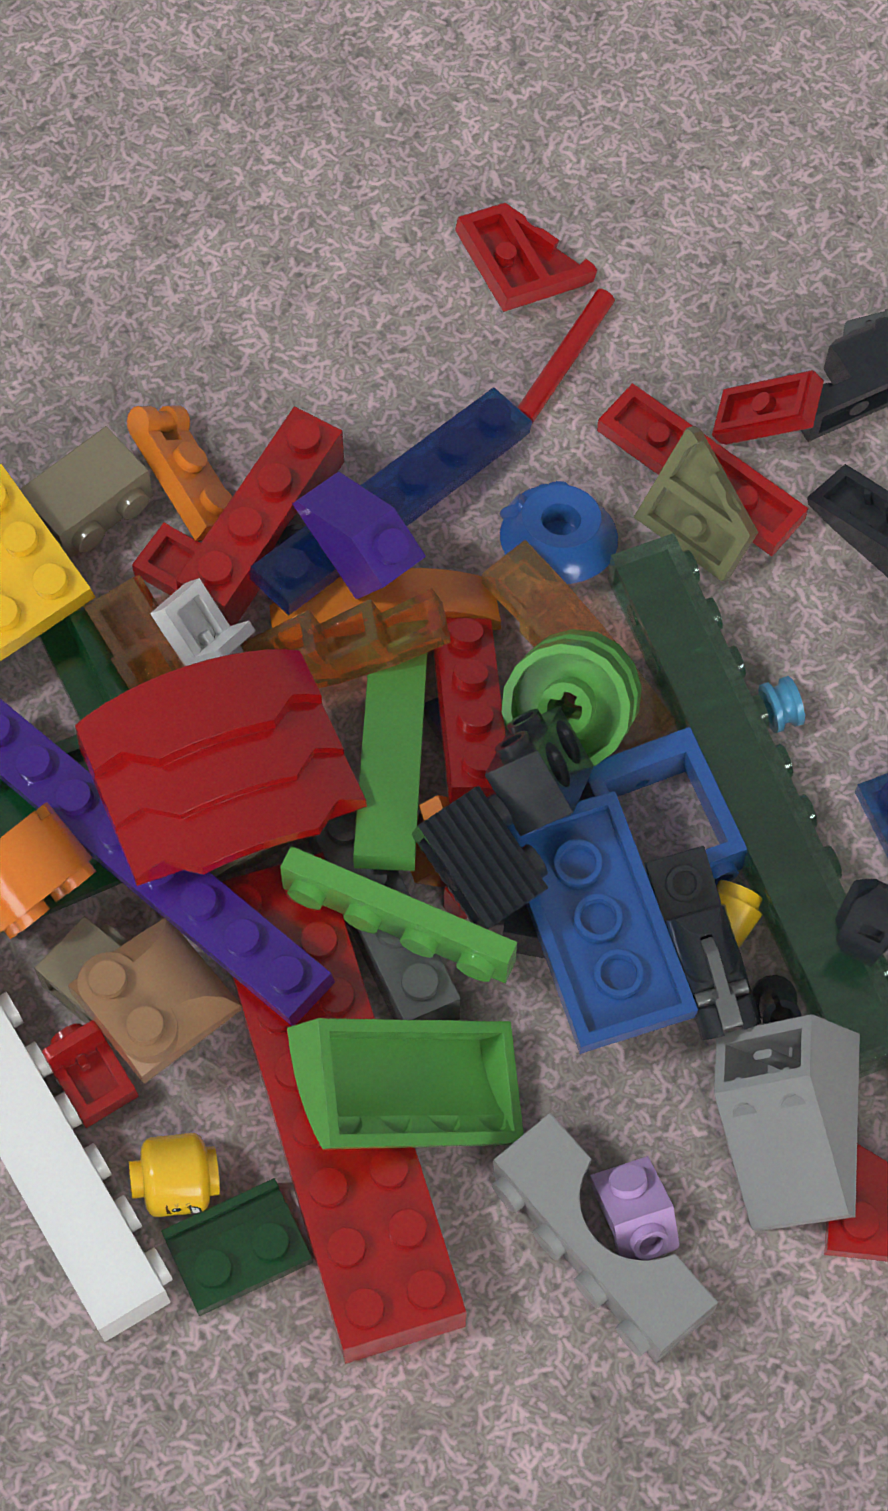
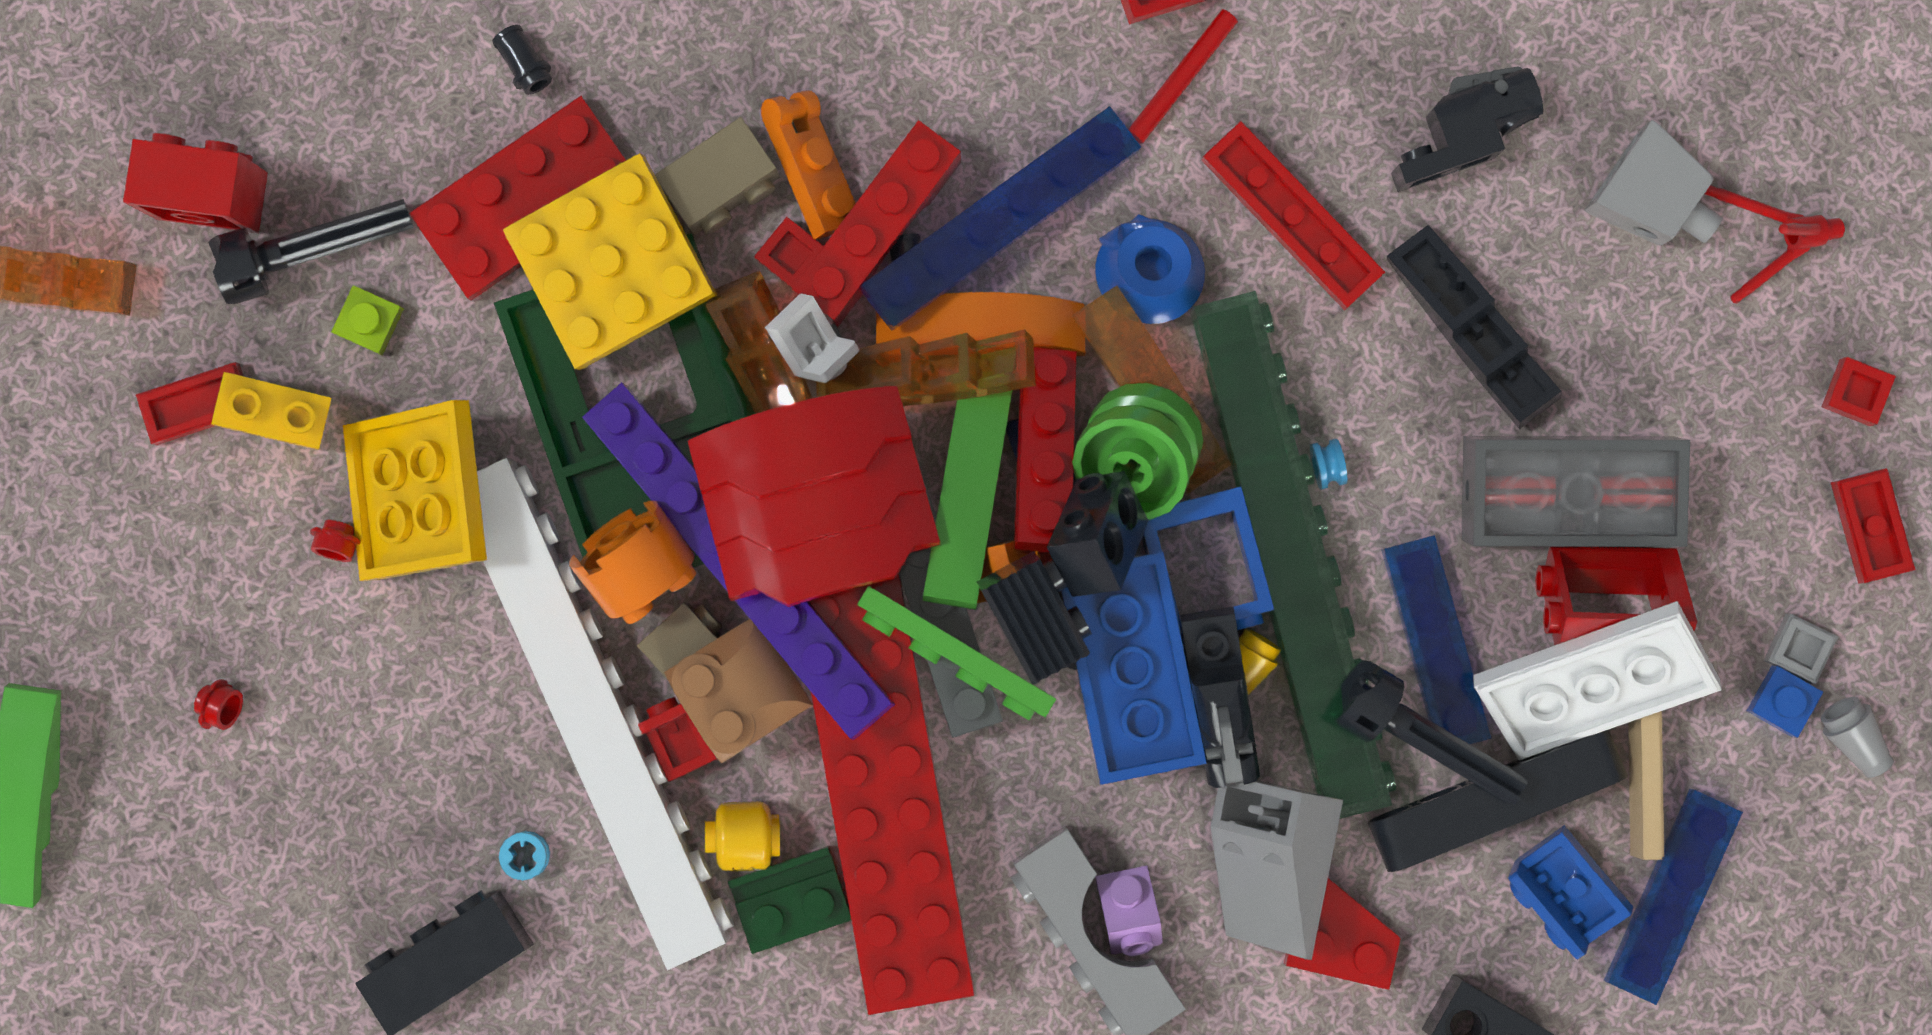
camera: 10 degrees right, 20 degrees up
(358, 534) = (963, 271): dark purple slope -> none
(407, 1082) = (947, 799): bright green slope -> none
(699, 507) = (1283, 262): olive wing -> none
(768, 408) = (1364, 166): red plate -> none
(772, 988) = (1277, 743): black pin -> none

